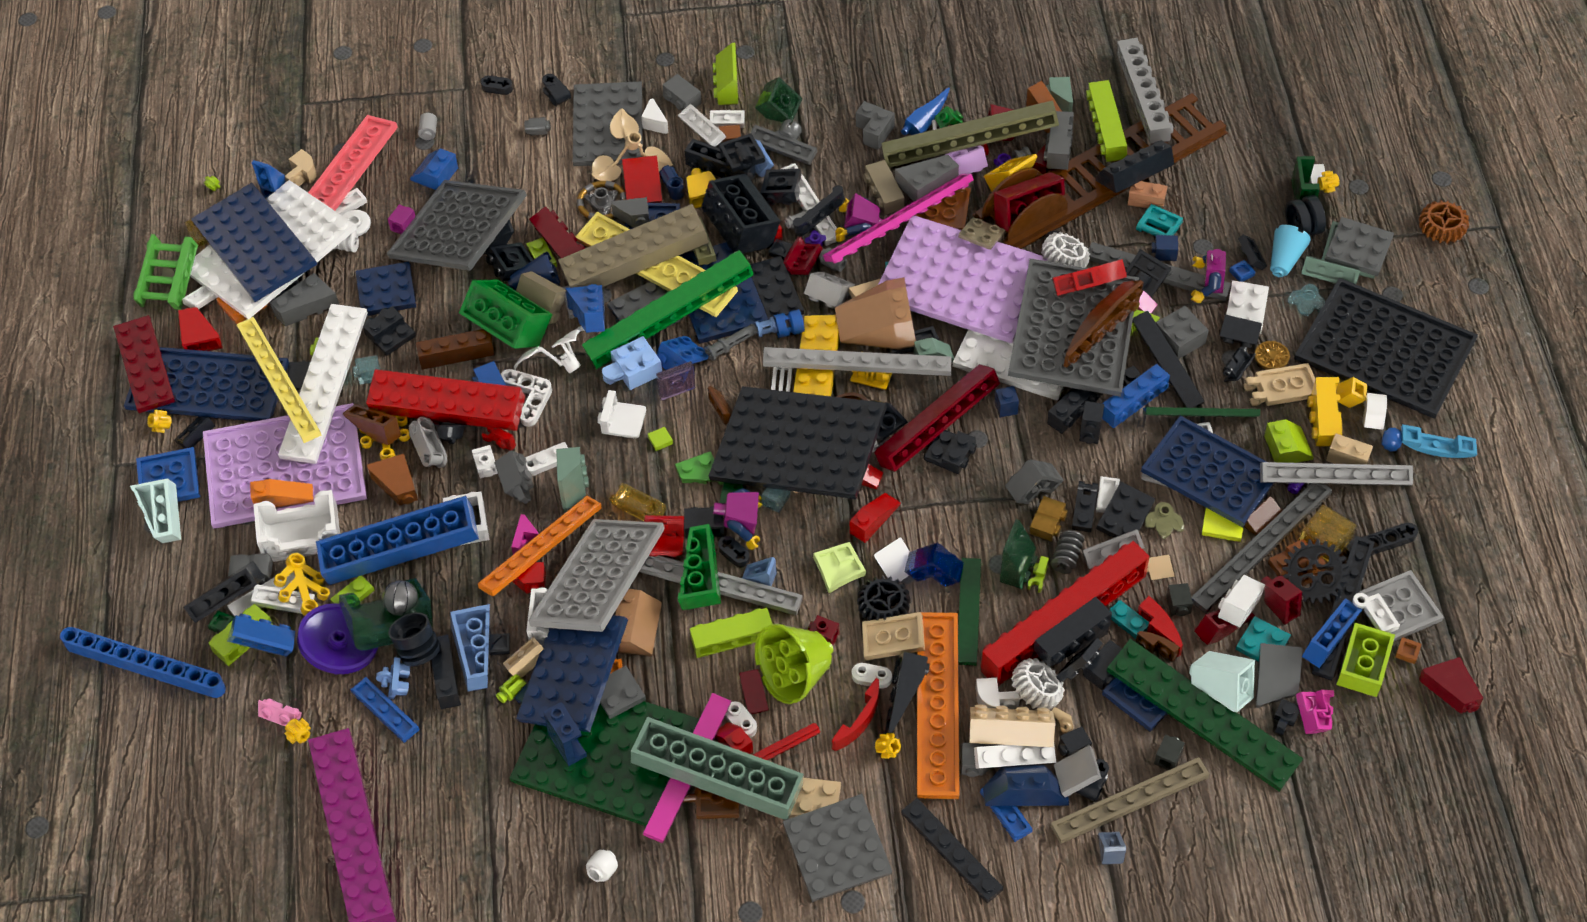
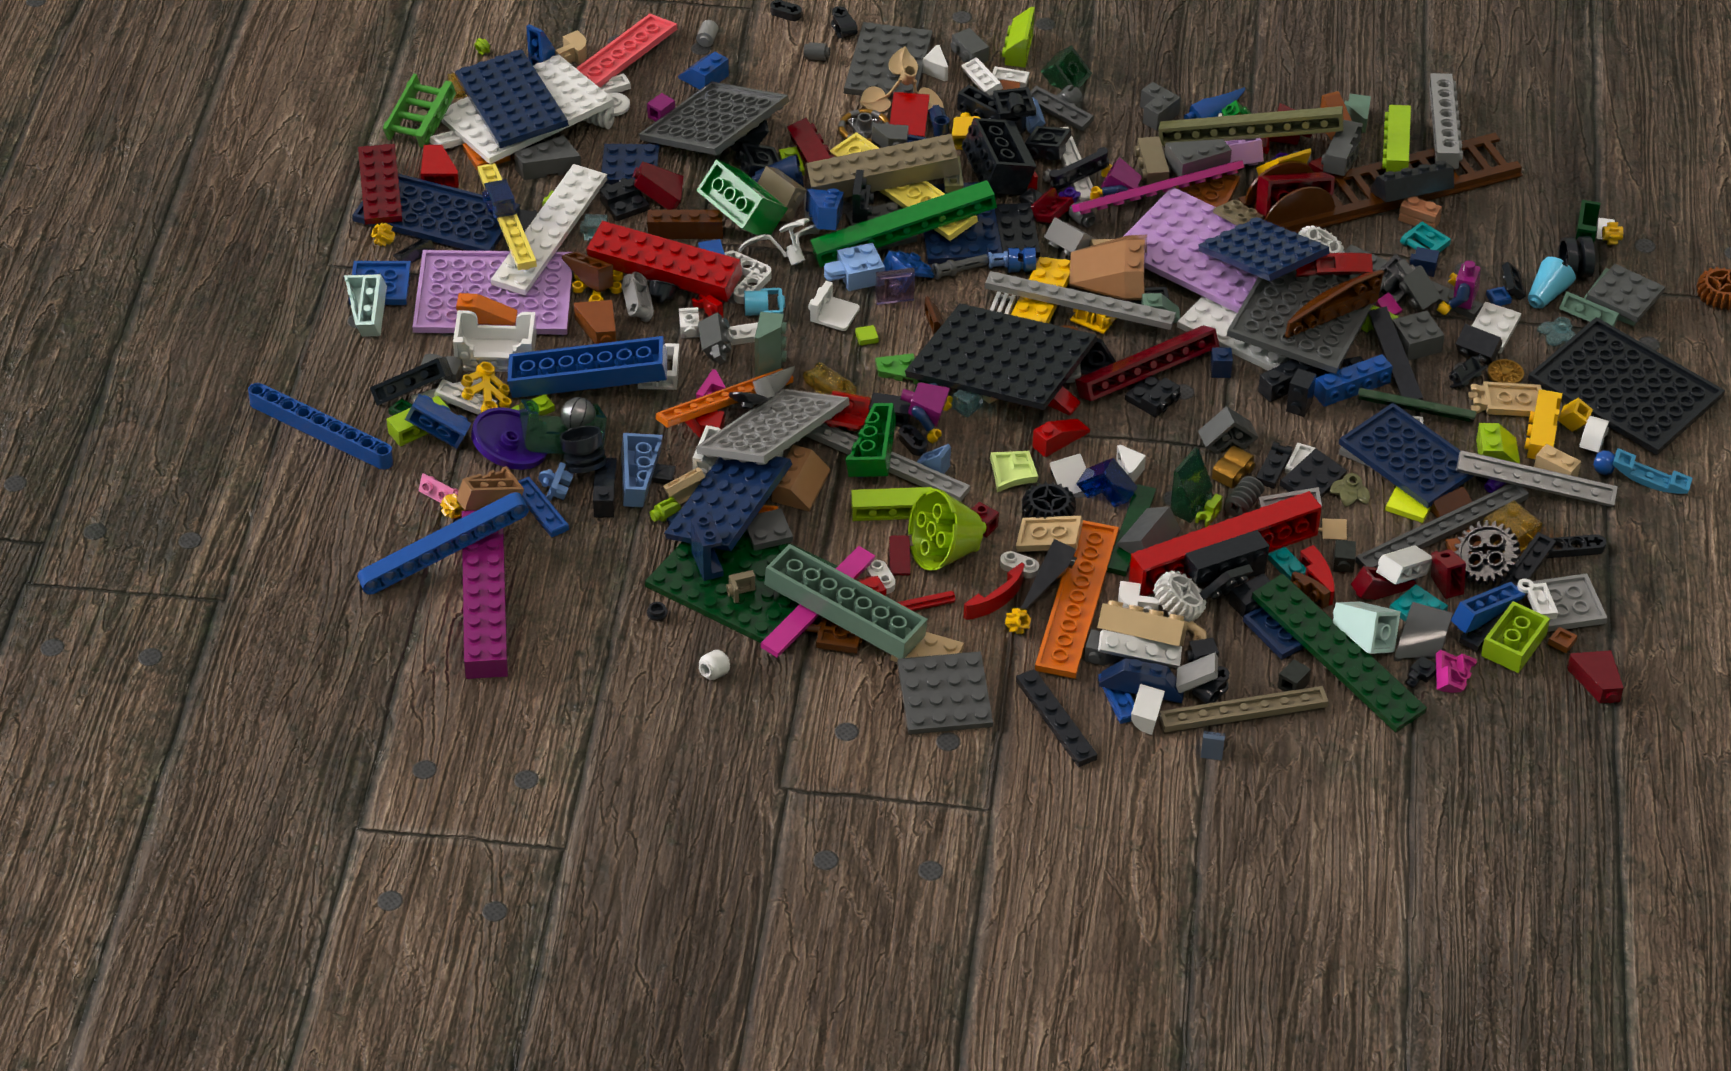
camera: 10 degrees right, 10 degrees down
(267, 363) = (499, 198): none -> clear blue brick
(297, 786) = (442, 543): none -> blue beam
(332, 709) = (482, 490): none -> medium nougat wedge
(421, 310) = (659, 184): none -> dark red slope
(529, 812) = (657, 611): none -> black plate
(546, 424) = (758, 301): none -> medium azure piece
(565, 547) = (748, 399): none -> black dish
(582, 519) = (773, 383): none -> light grey piece
(605, 765) = (740, 583): none -> dark tan bracket
(621, 289) = (861, 198): none -> black plate
(949, 535) = (1131, 461): none -> white slope
(989, 613) = (1151, 528): none -> dark grey slope
(1020, 274) = (1263, 249): none -> dark blue plate
(1039, 822) = (1146, 708): none -> white brick
(1169, 280) = (1417, 285): none -> dark grey hinge

